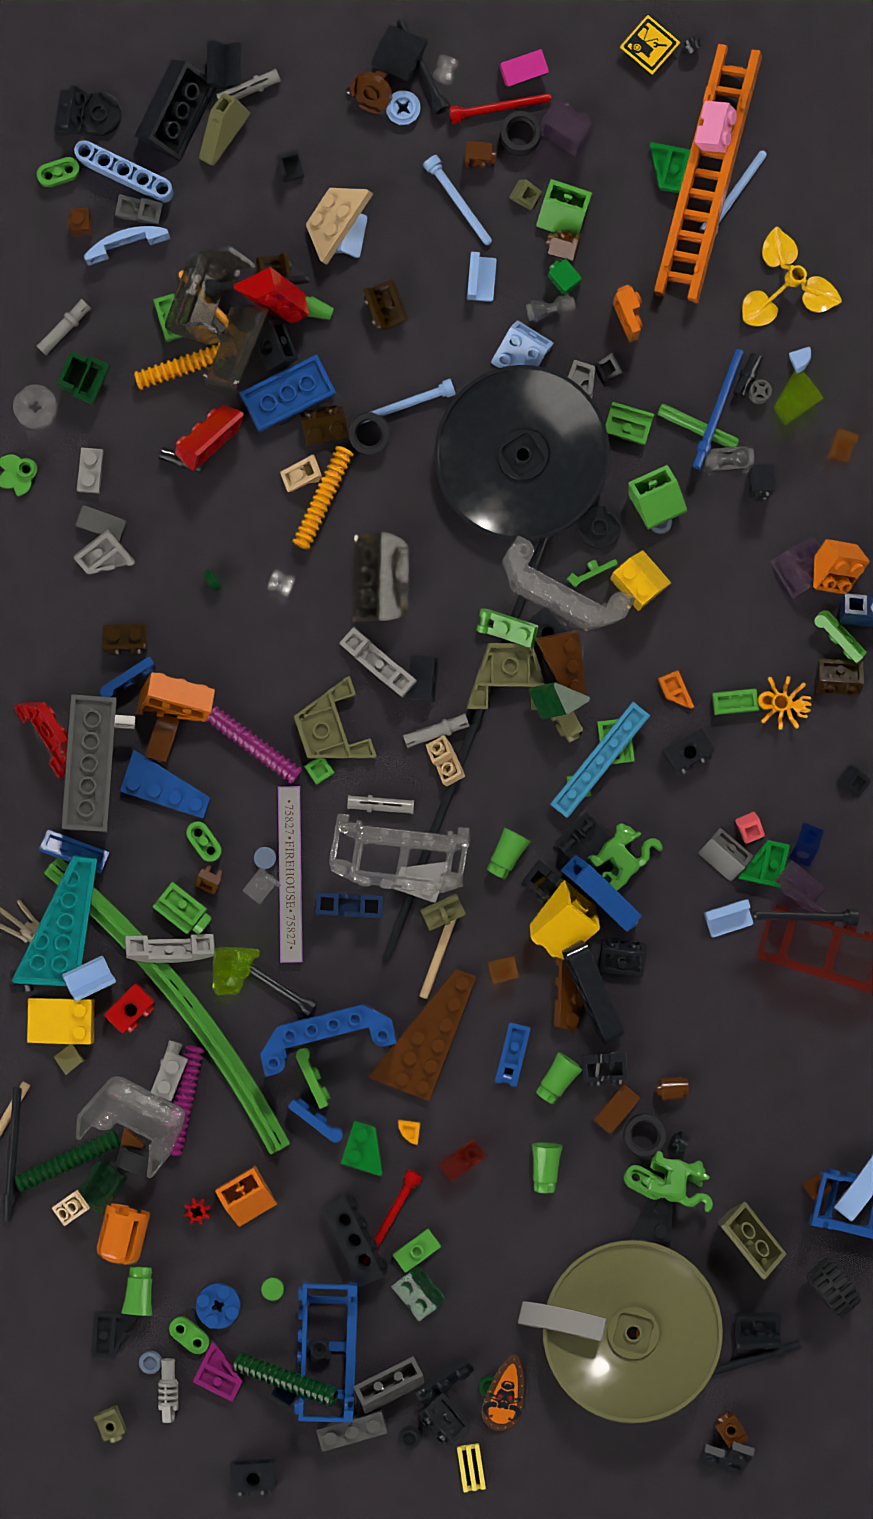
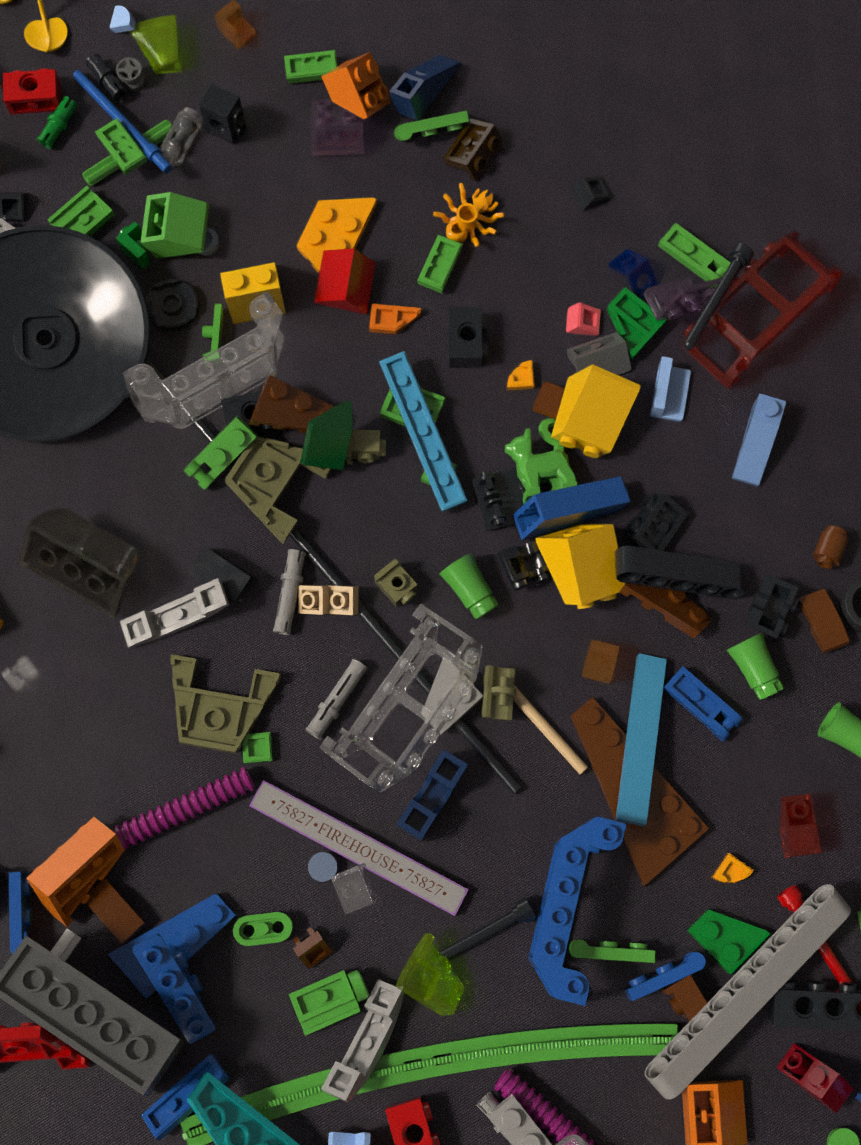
camera: 60 degrees left, 10 degrees down
(137, 807) = (175, 986): none -> blue bracket
(303, 1250) = (815, 1078): none -> dark red slope
(308, 1142) = (686, 997): none -> reddish brown brick
(335, 1178) = (747, 992): none -> light grey beam
(464, 1024) = (641, 740): none -> dark azure tile
(481, 792) = (397, 595): none -> olive brick
(624, 476) = (131, 245): none -> green bracket
(673, 836) = (548, 400): none -> reddish brown slope
(677, 872) = (593, 410): none -> yellow slope
(682, 806) = (521, 377): none -> light orange tile
(683, 641) = (345, 280): none -> red slope
(692, 361) = (57, 122): none -> green pin
(696, 422) = (121, 146): none -> bright green plate
(706, 341) = (22, 101): none -> red brick
(716, 612) = (334, 227): none -> light orange wing
(724, 998) = (758, 439): none -> medium blue slope
(840, 520) = (309, 66): none -> bright green plate
(843, 881) = (693, 253): none -> bright green plate

